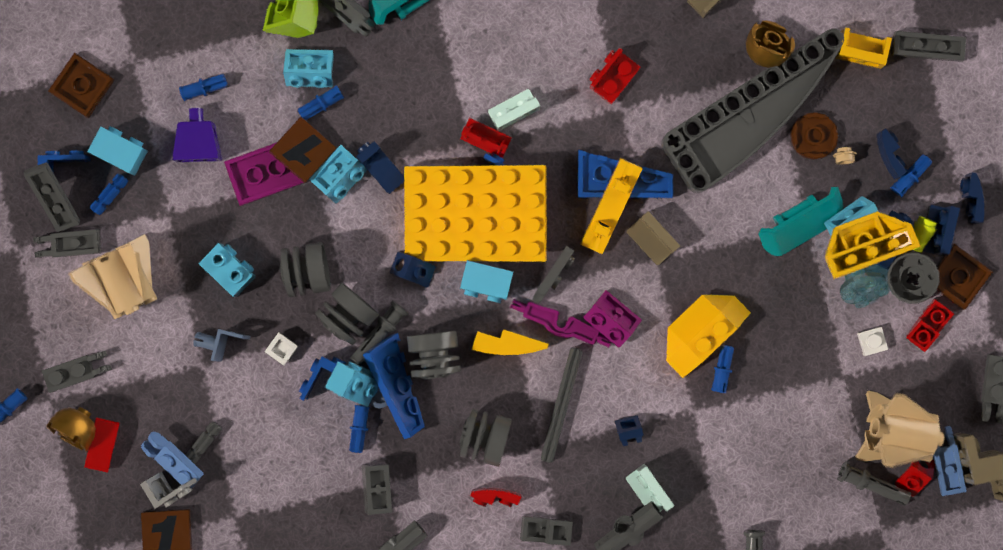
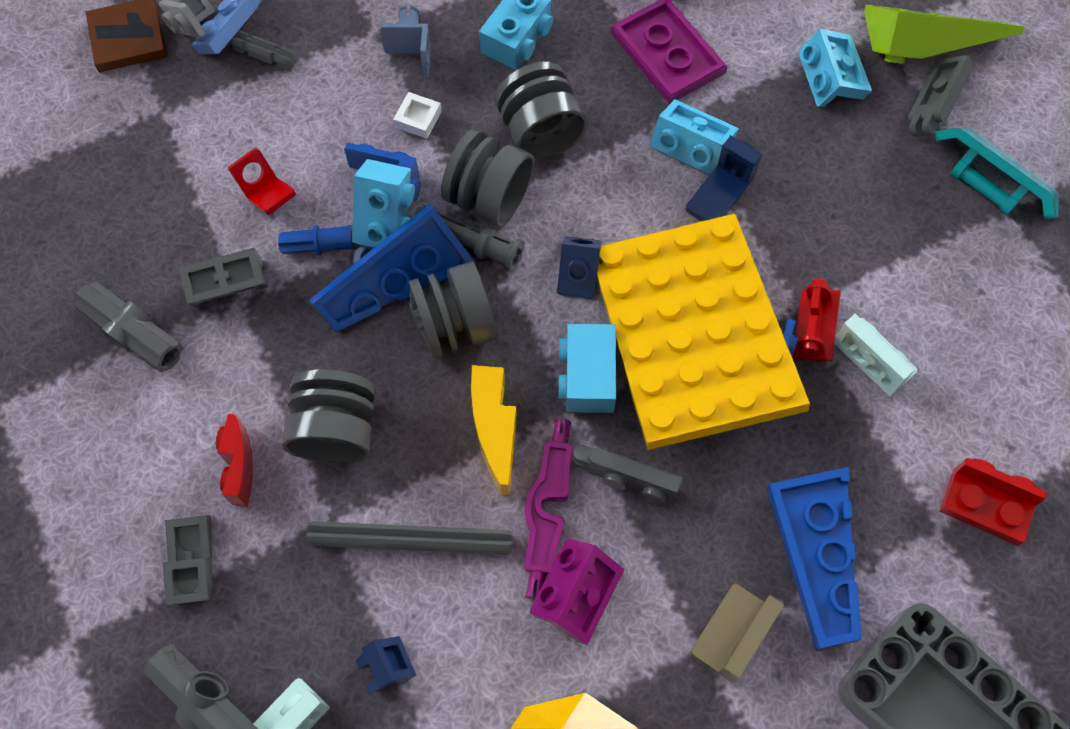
camera: 75 degrees right, 20 degrees down
(302, 150) = (715, 80): reddish brown tile -> none
(315, 455) = (267, 191): none -> red bracket
(320, 103) = (790, 93): blue axle -> none
(611, 205) = (773, 541): yellow hinge -> none

